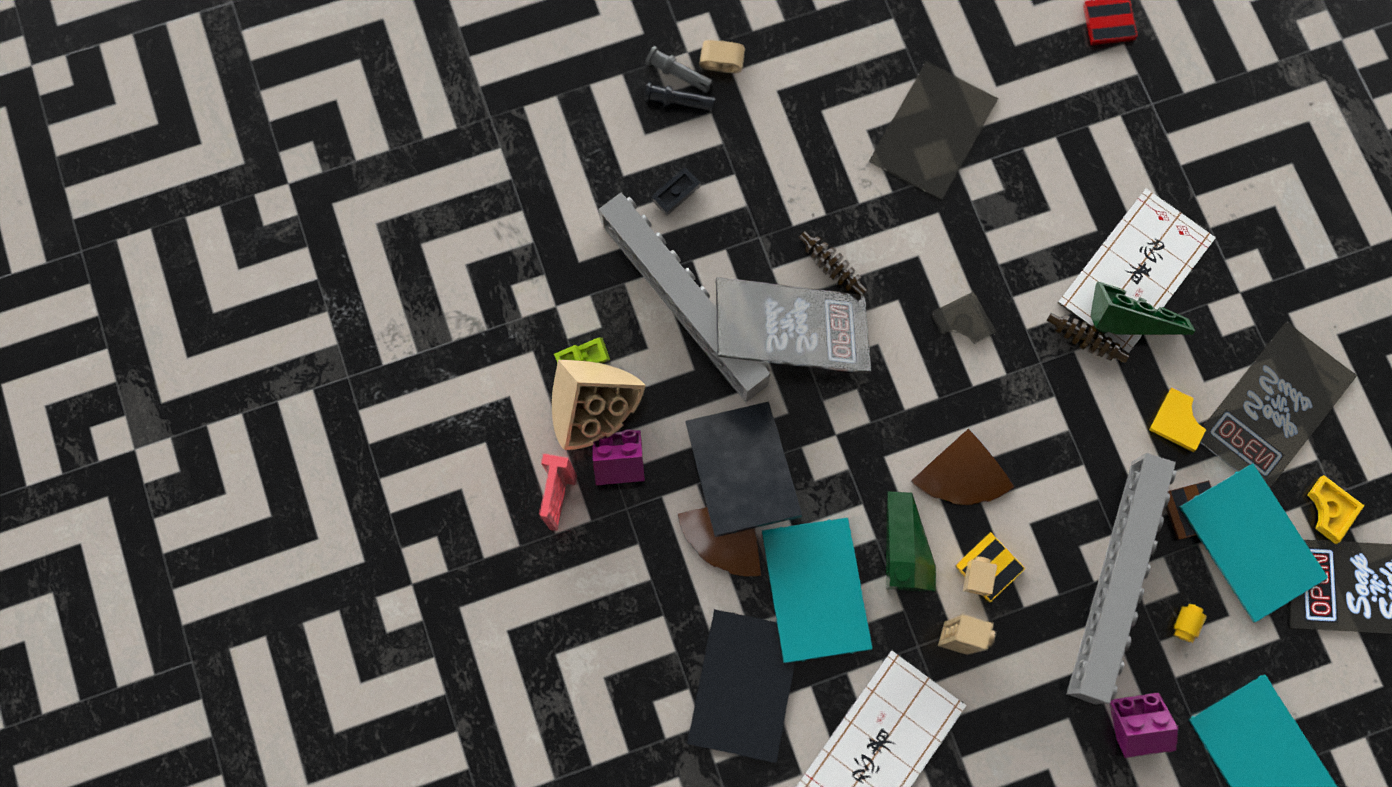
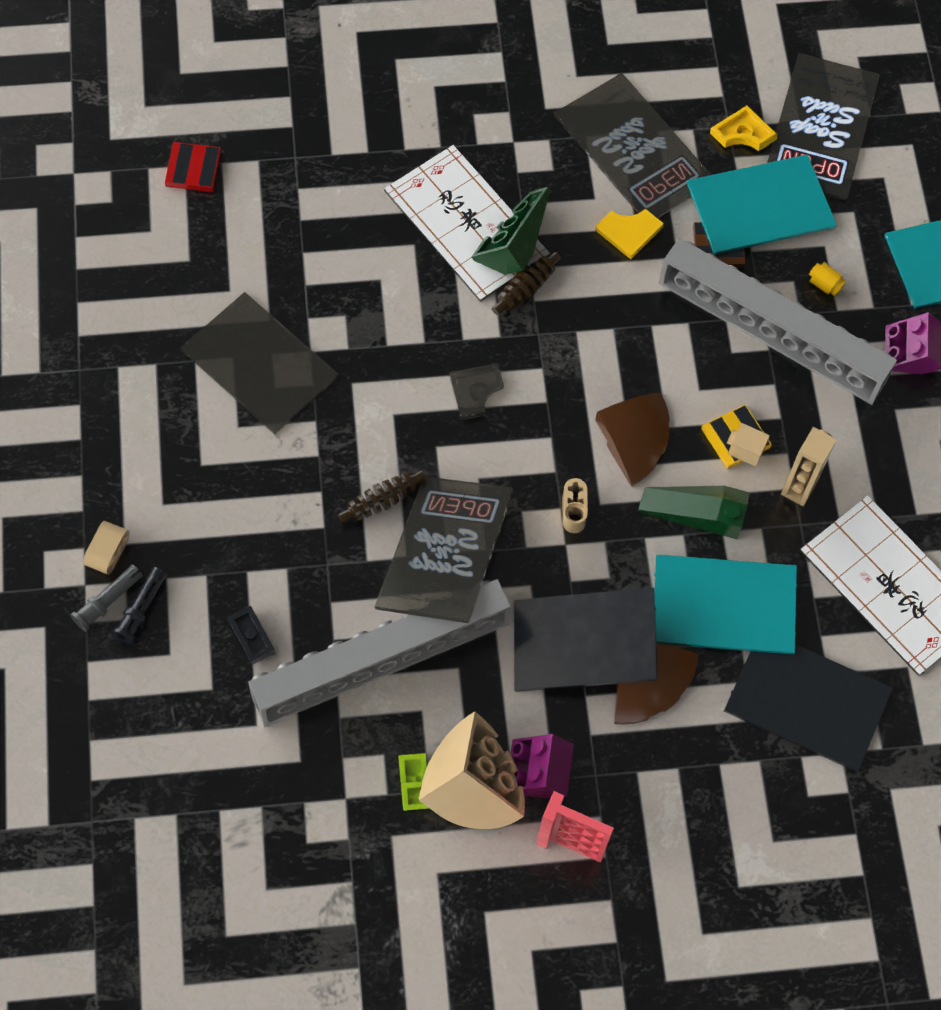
camera: 80 degrees left, 10 degrees down
(879, 437) = (574, 508): none -> tan beam

